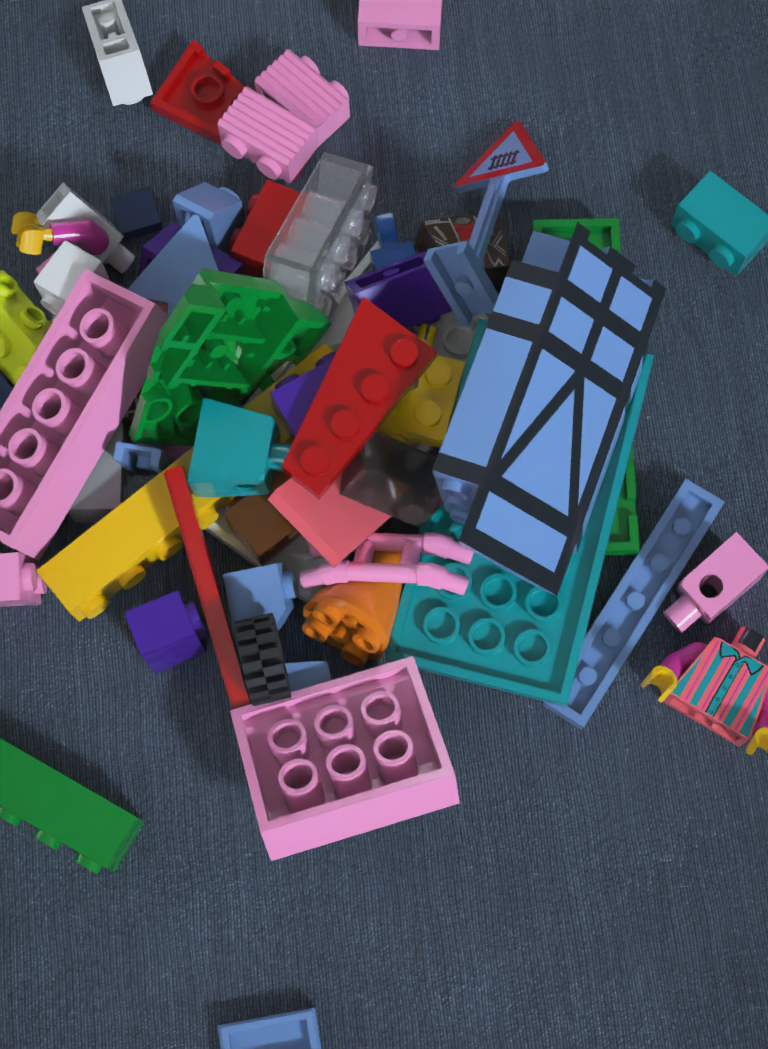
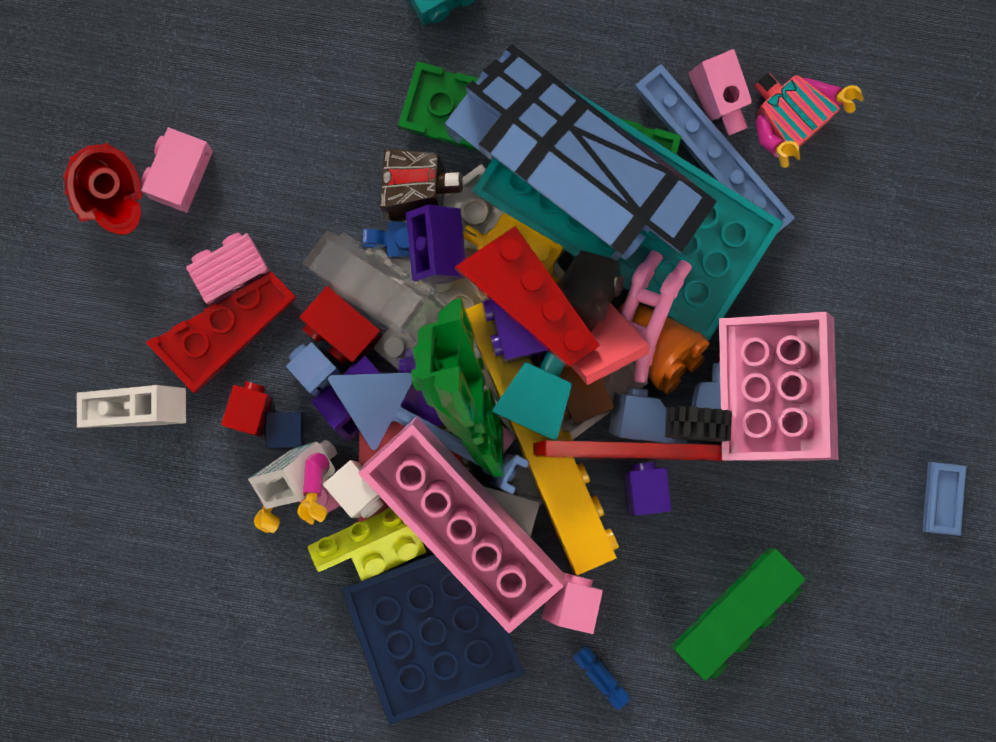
camera: 80 degrees left, 10 degrees up
(146, 162) = (247, 409): none -> red brick
(267, 135) = (262, 305): bright pink brick -> none
(461, 265) = (339, 133): medium blue piece -> none

